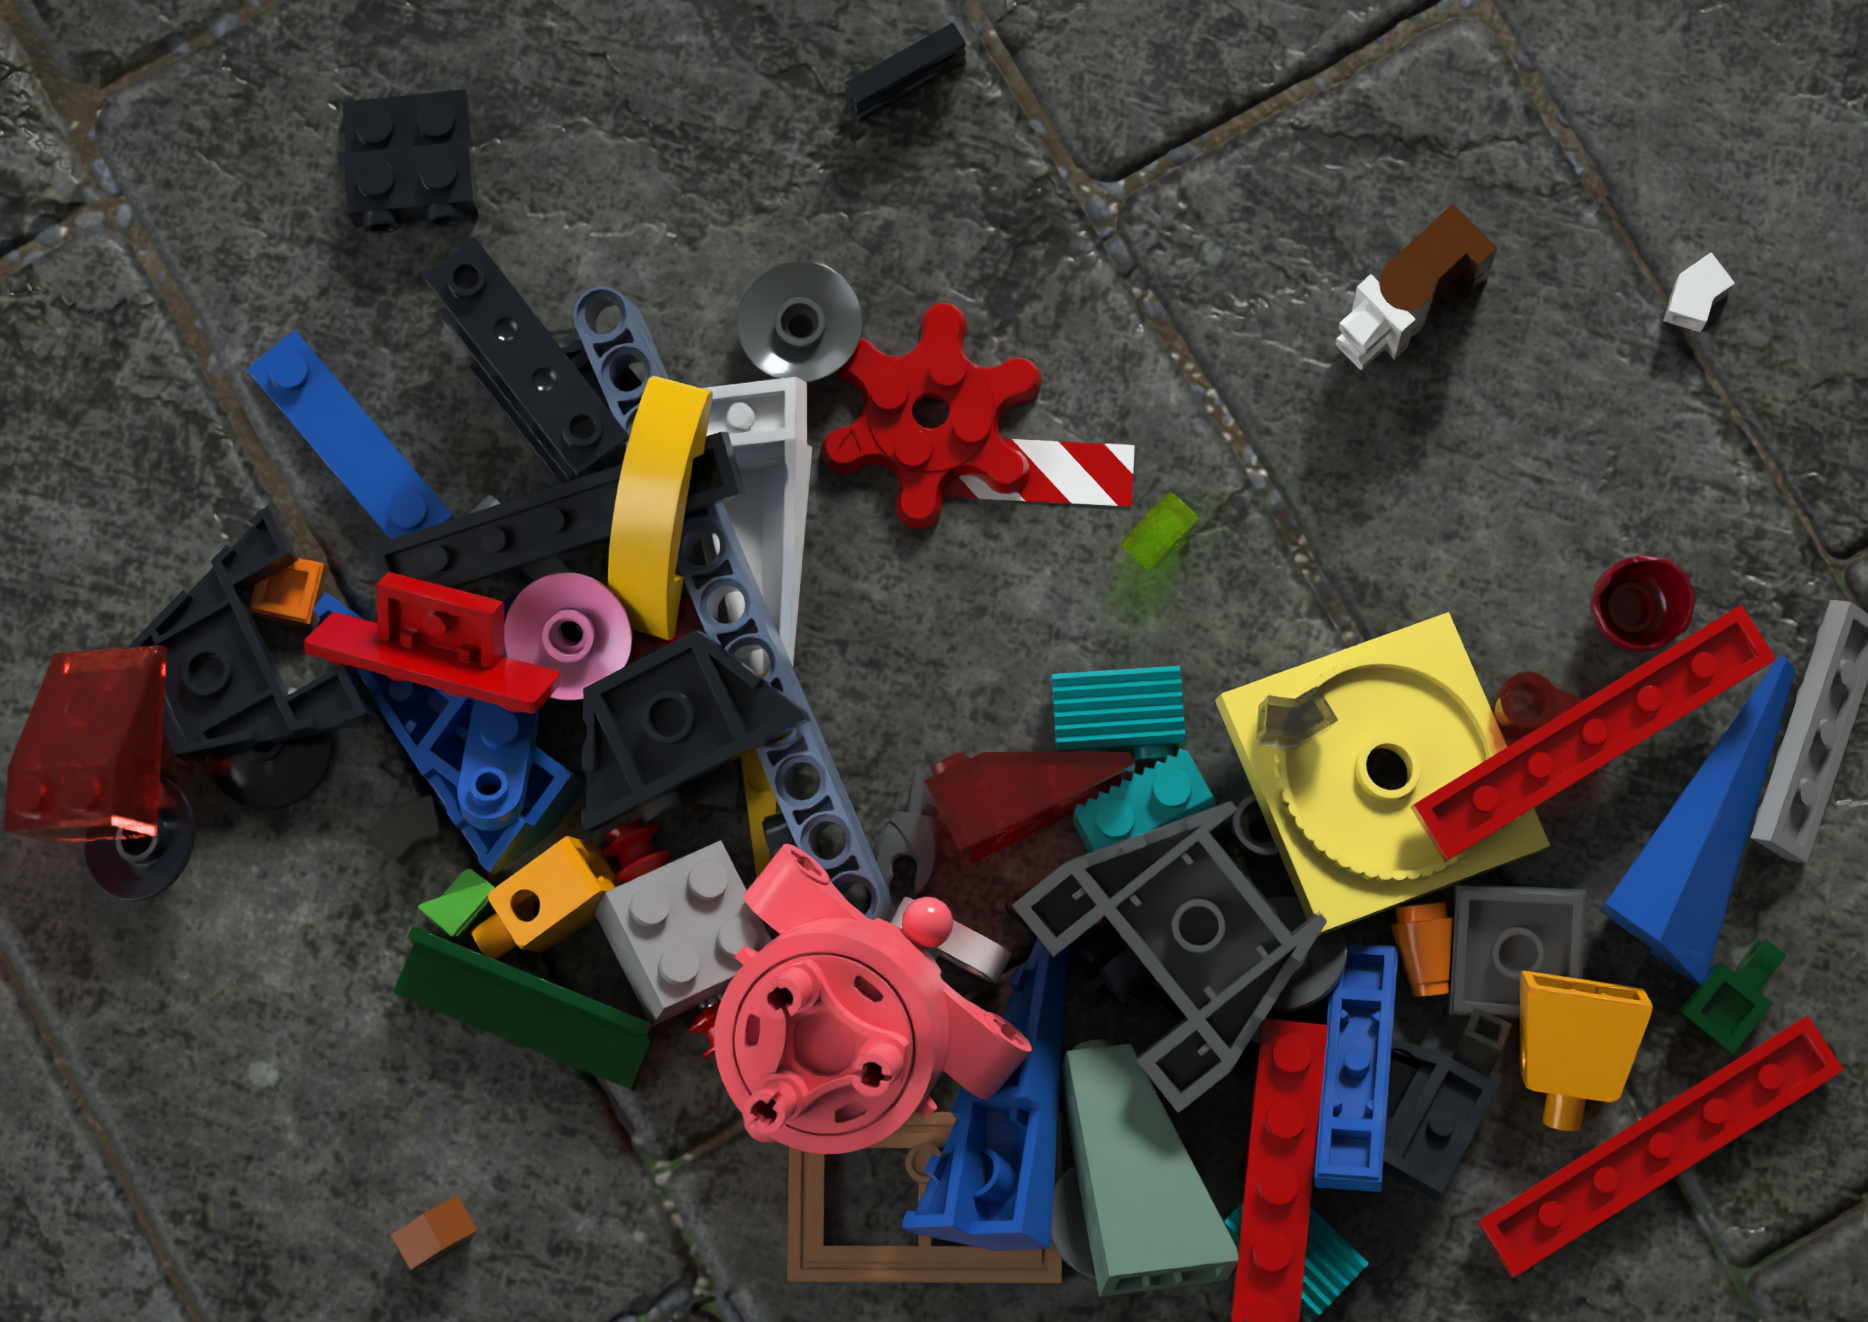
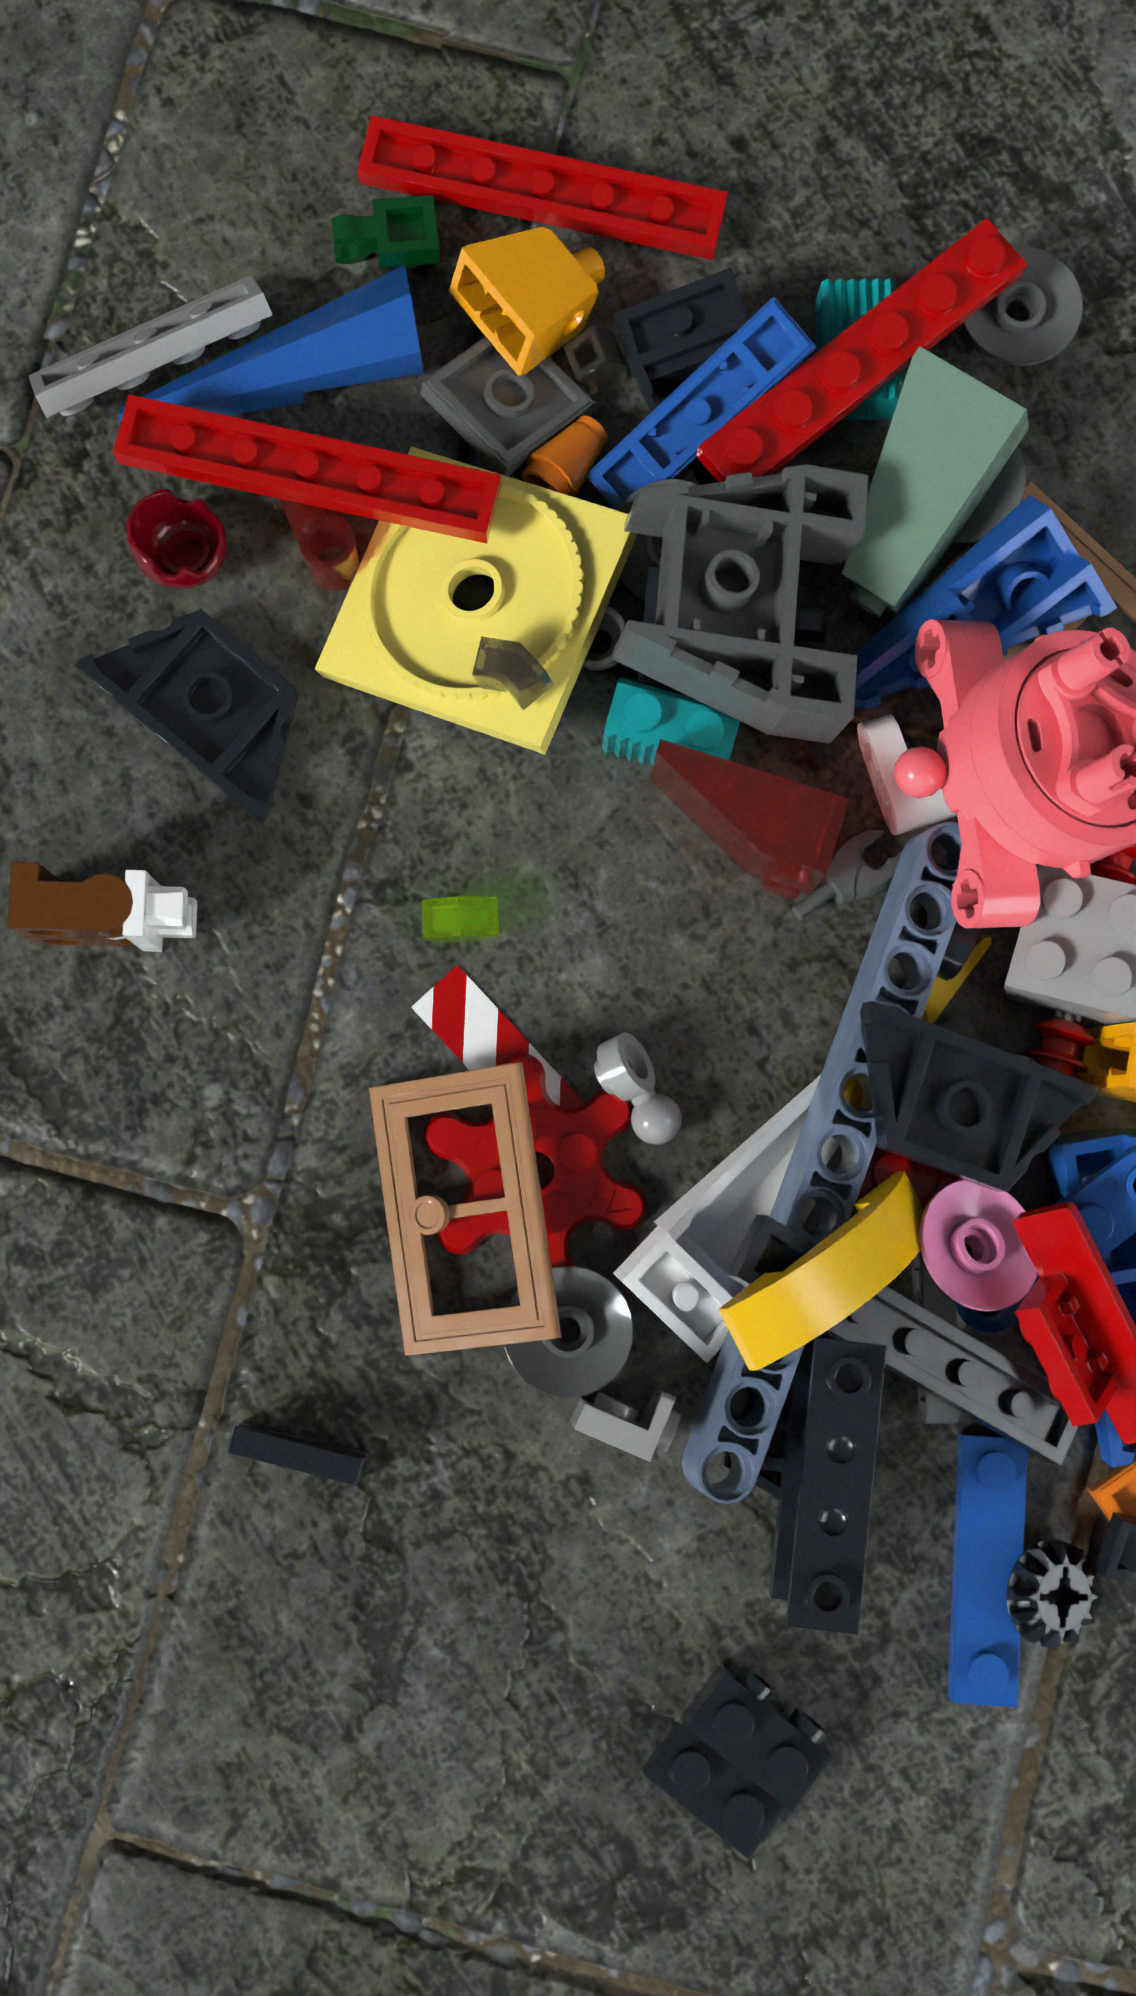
camera: 145 degrees left, 5 degrees up
(315, 467) = (1042, 1570): none -> black gear
(700, 284) = (616, 1424): none -> light grey bracket
(931, 539) = (628, 1073): none -> light grey plate
(980, 298) = (414, 1217): none -> medium nougat door
(1120, 712) = (620, 816): teal brick -> none
(1499, 510) = (205, 702): none -> black wing

